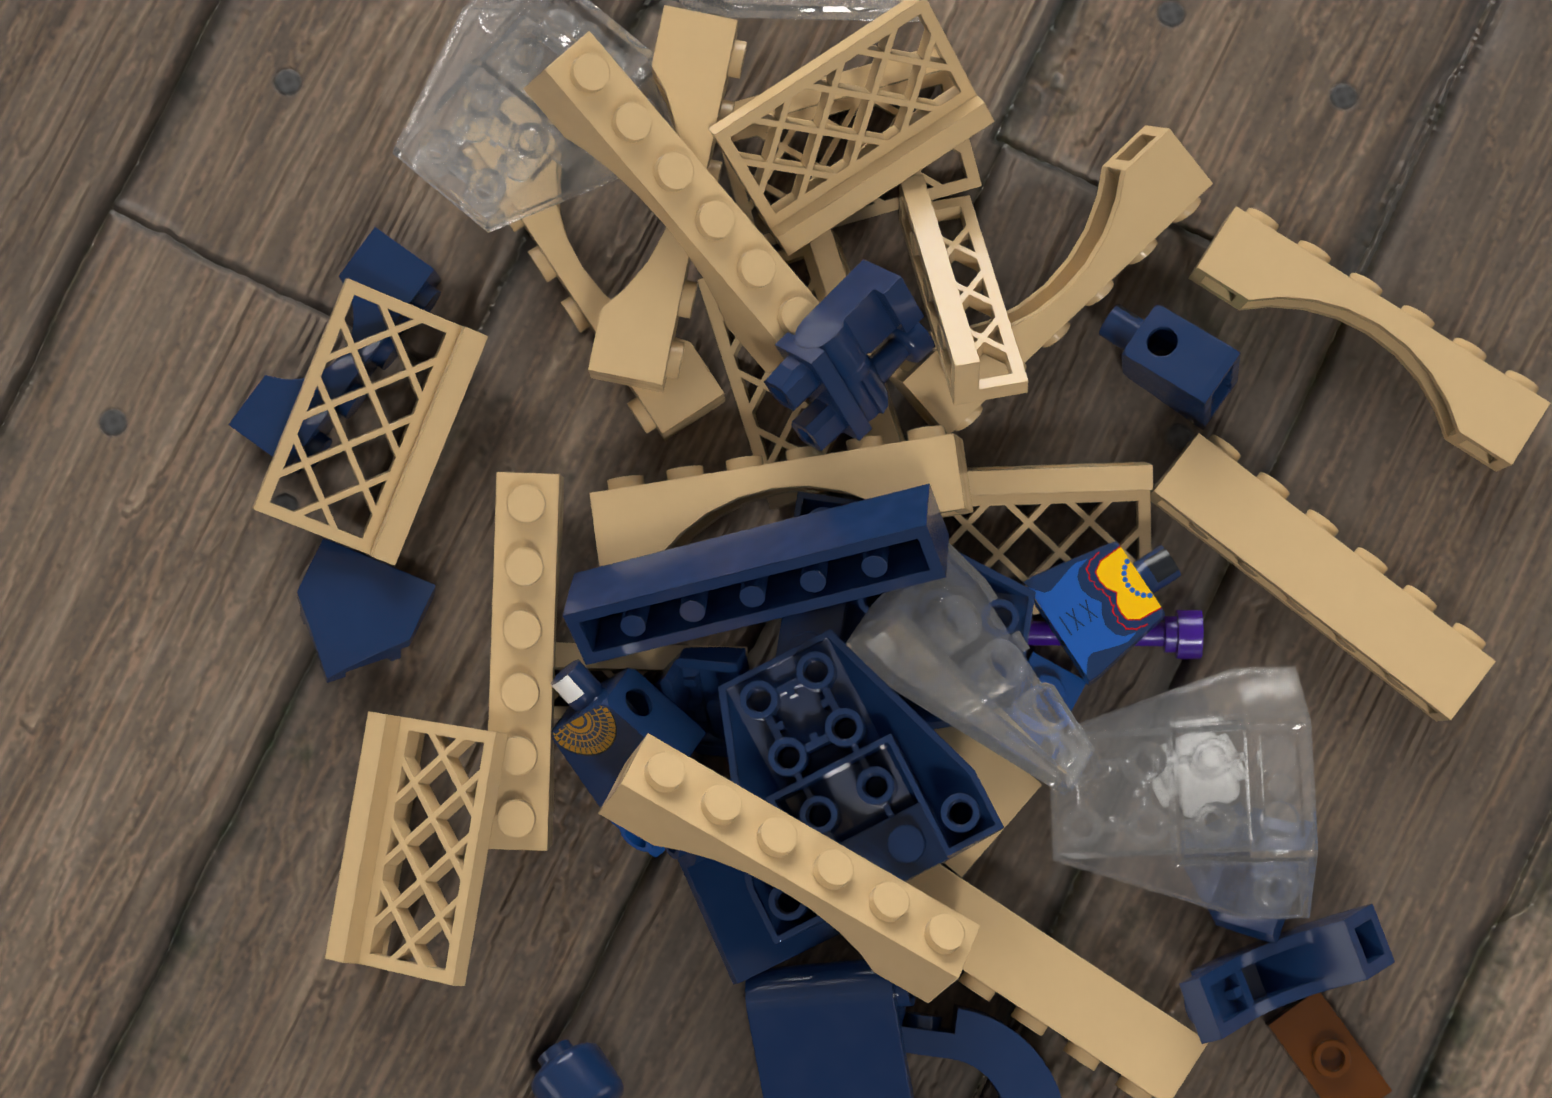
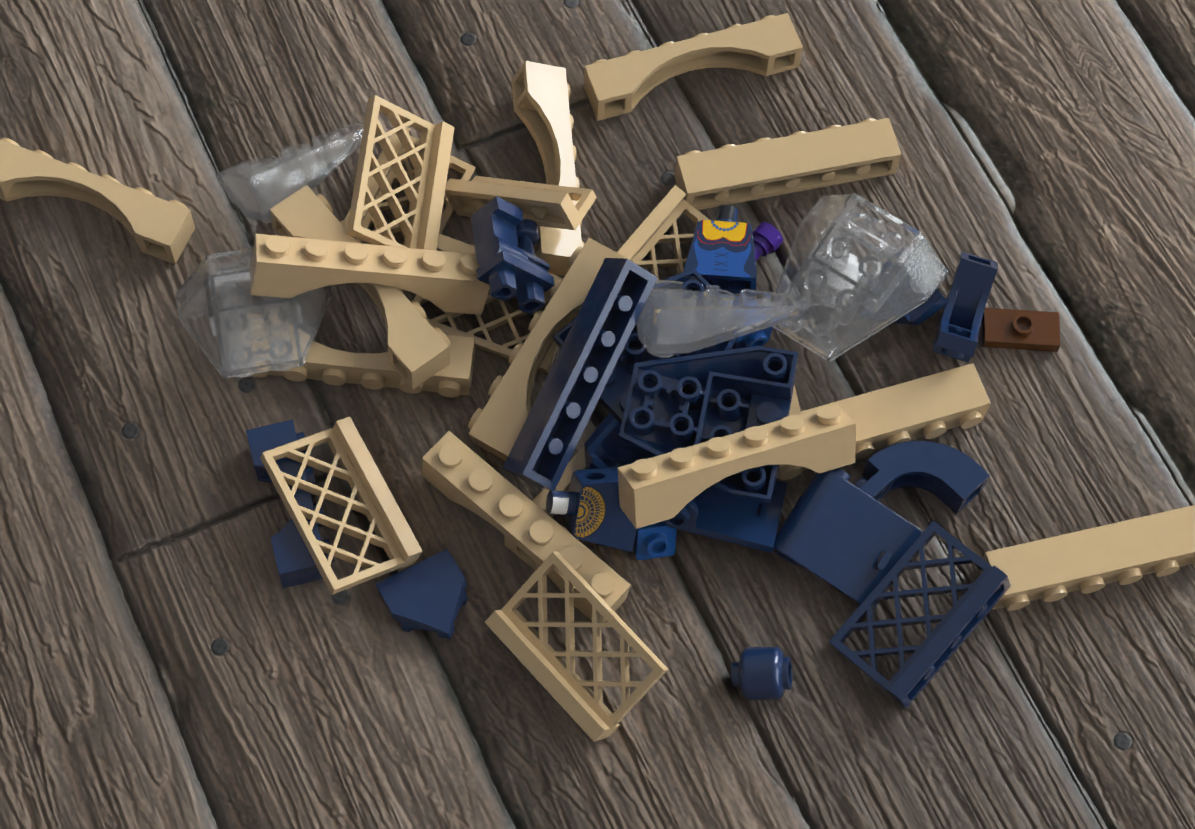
camera: 55 degrees left, 20 degrees down
(1189, 379) = (634, 143): dark blue torso -> none

